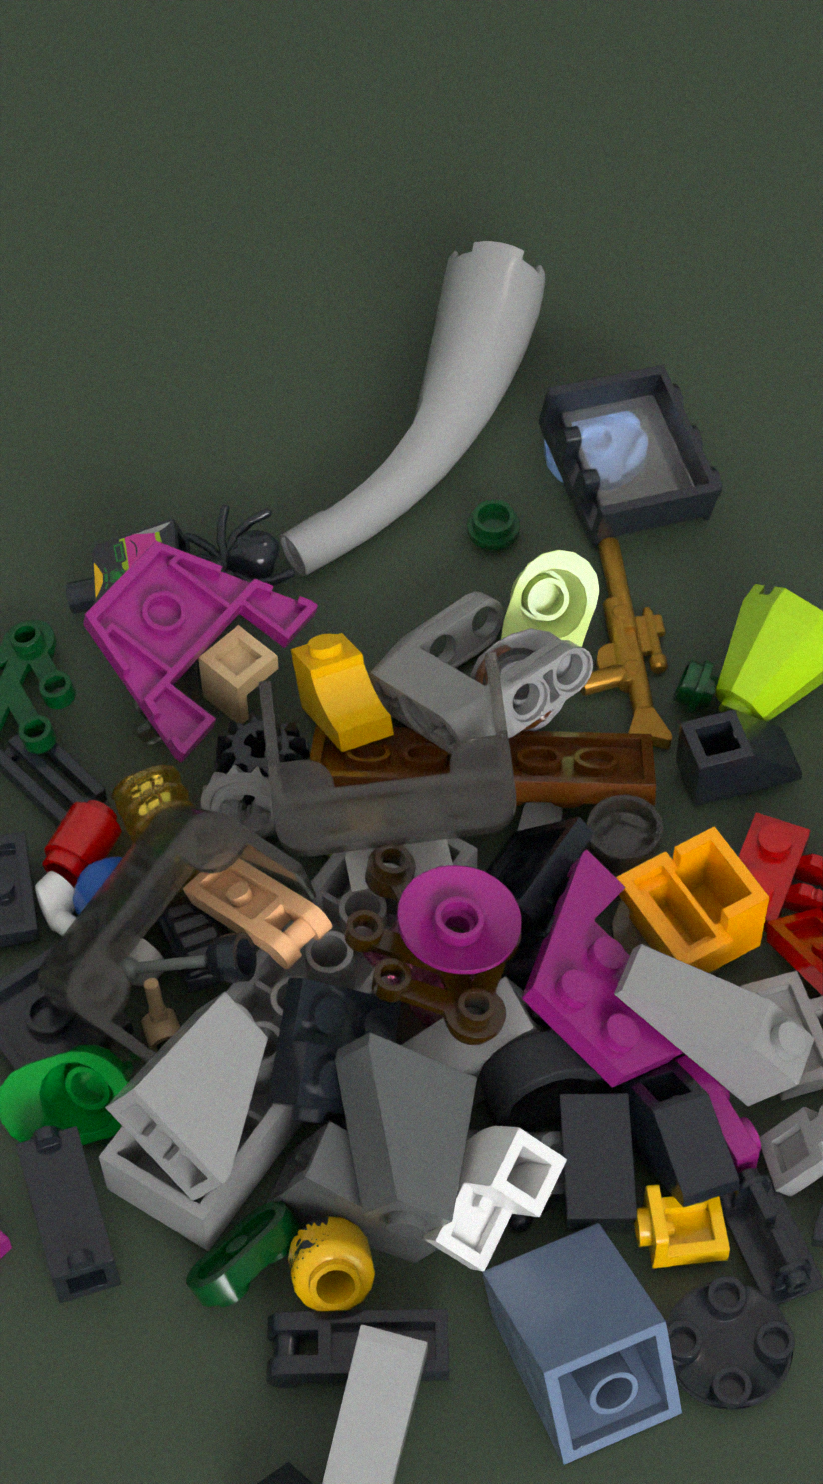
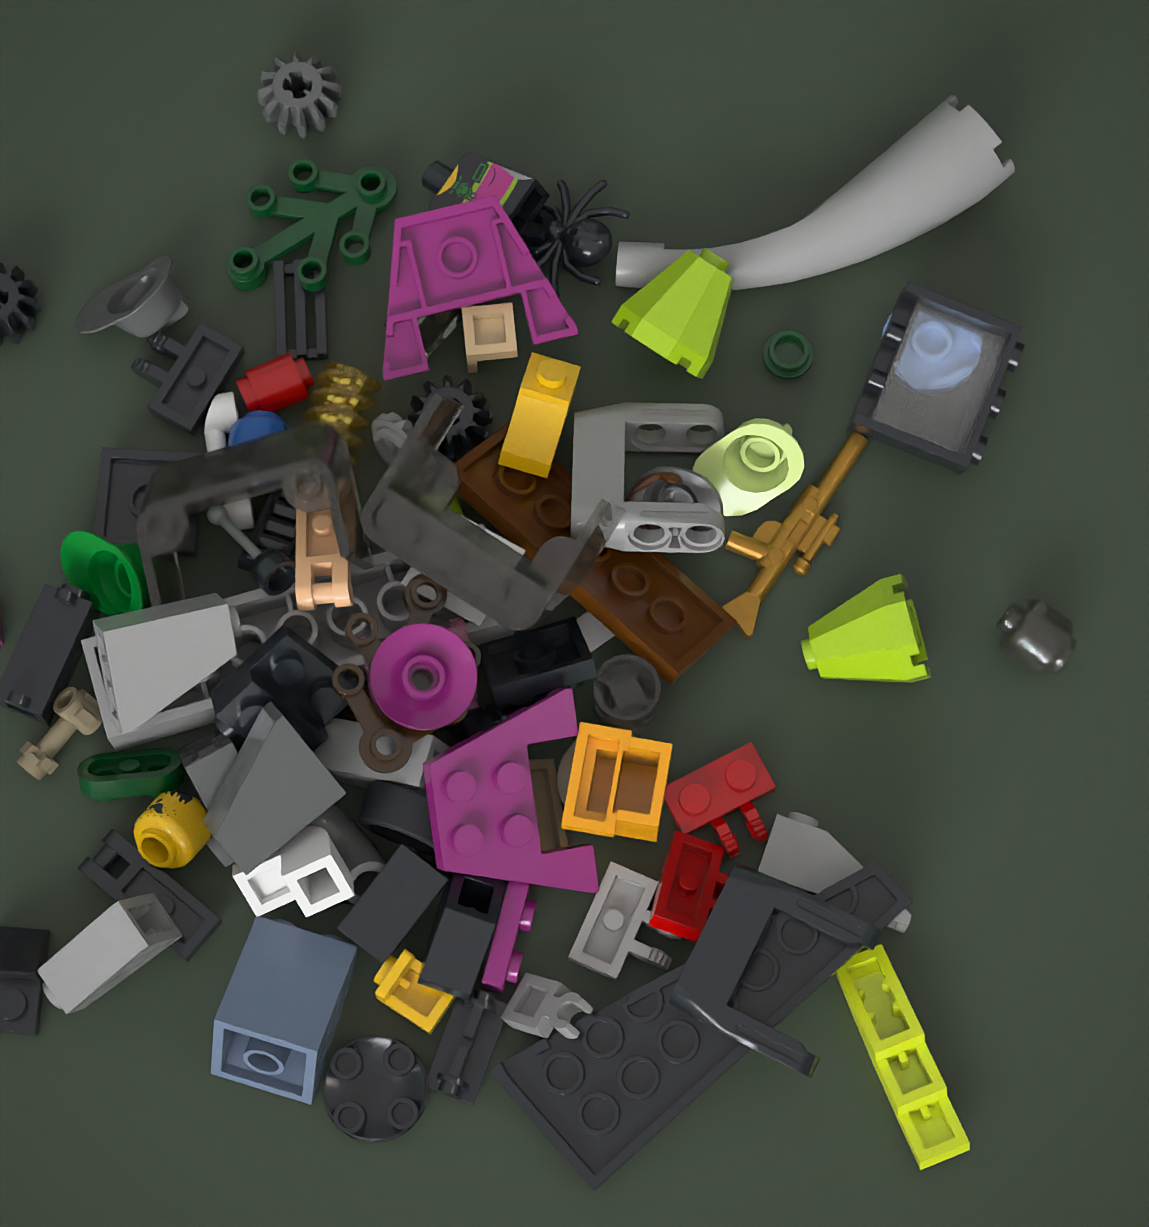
camera: 40 degrees right, 20 degrees up
(146, 1242) = (77, 712): none -> dark tan bar
(160, 1022) = (215, 566): tan hand -> none
(387, 539) = (681, 311): none -> lime cone
(696, 685) = (803, 609): dark green plate -> none
(720, 1026) = (541, 881): light grey slope -> none
(733, 756) = (774, 690): black slope -> none

